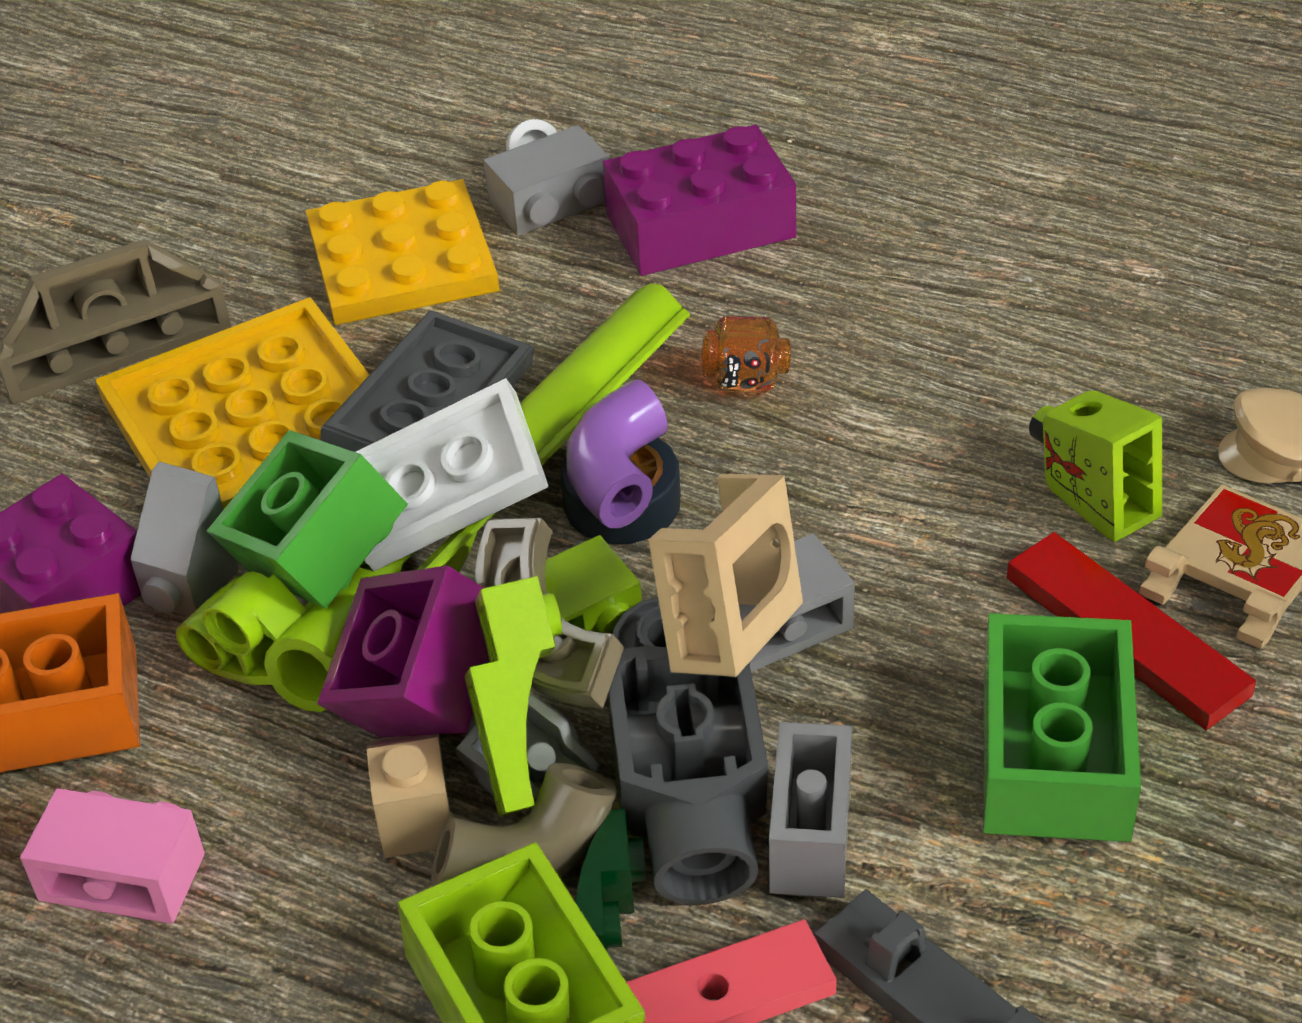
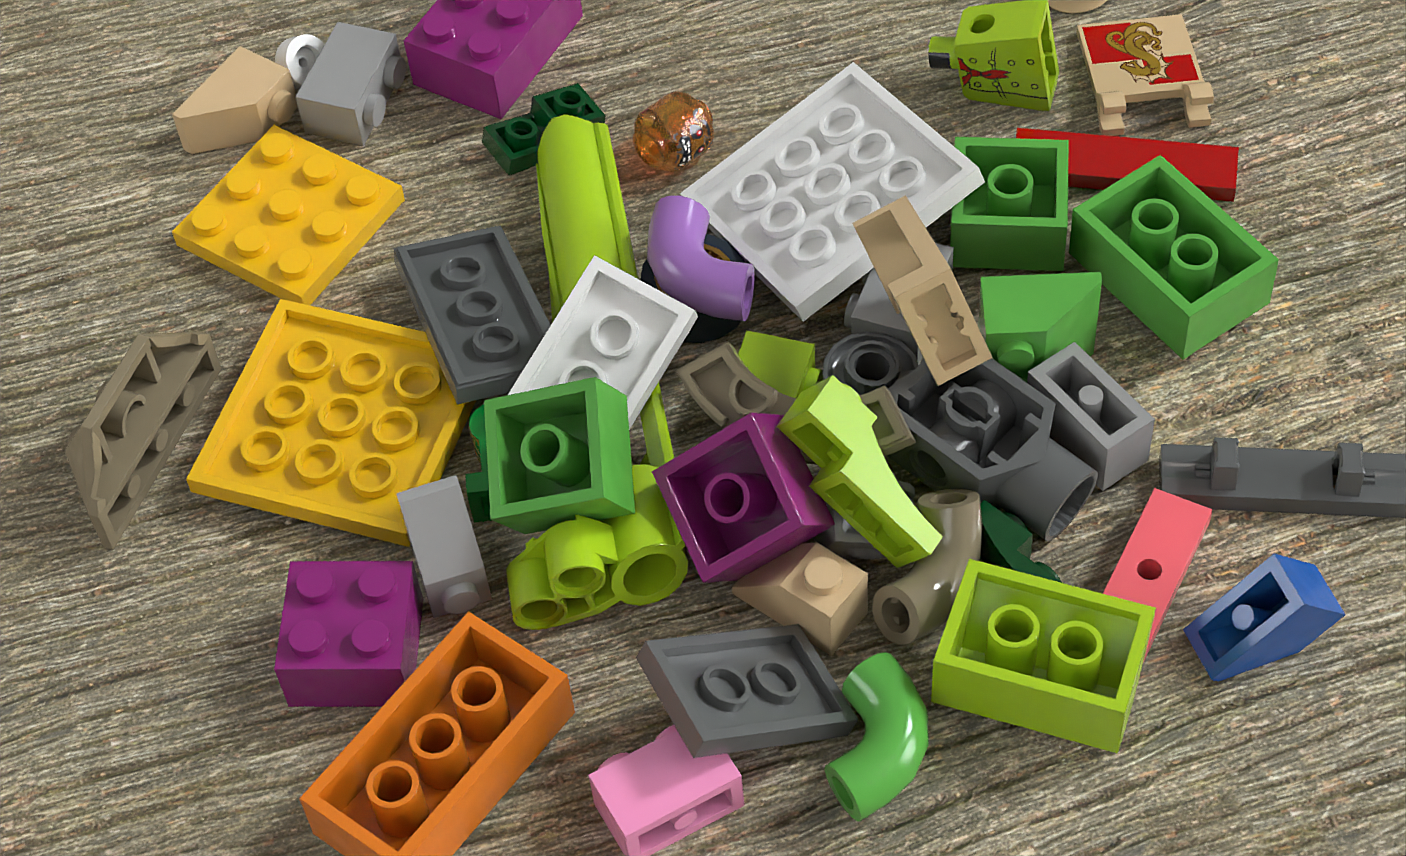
camera: 40 degrees left, 10 degrees up
(248, 817) = (746, 689): none -> dark grey plate
(321, 959) = (892, 741): none -> bright green cylinder
(446, 145) = (236, 103): none -> tan slope
(688, 286) = (517, 140): none -> dark green slope
(840, 677) = (1038, 316): none -> bright green slope
(847, 456) = (817, 170): none -> white plate
(946, 574) = (1019, 211): none -> bright green brick

